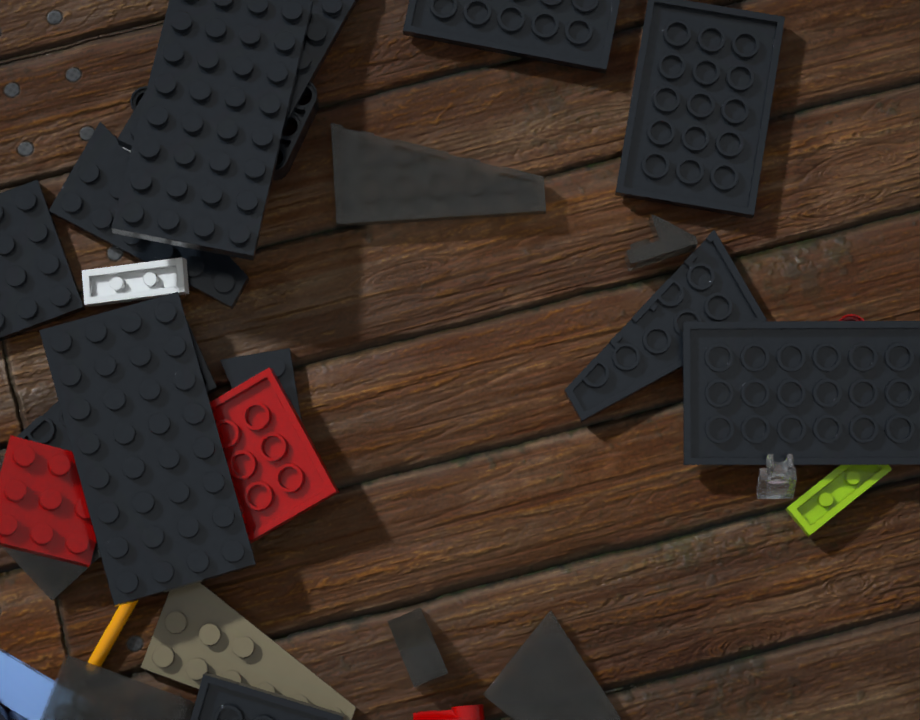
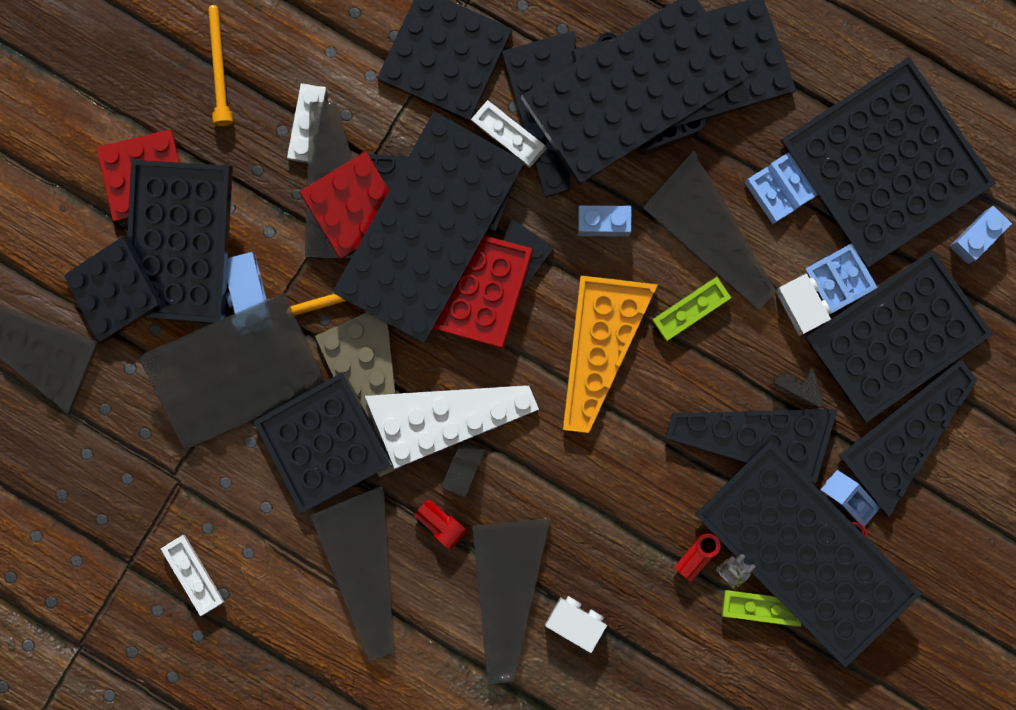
camera: 45 degrees right, 5 degrees up
(312, 273) = (604, 221): none -> light blue brick
(340, 633) = (431, 421): none -> white wing
(418, 379) = (603, 330): none -> light orange wing
(449, 78) = (780, 188): none -> light blue slope
(481, 274) = (691, 309): none -> lime plate
(582, 163) = (804, 304): none -> white brick
(592, 105) = (842, 278): none -> light blue slope
(680, 686) = (575, 624): none -> white brick
(728, 506) = (695, 558): none -> red piece
(806, 206) = (900, 444): none -> black wing
(812, 300) = (850, 498): none -> light blue slope

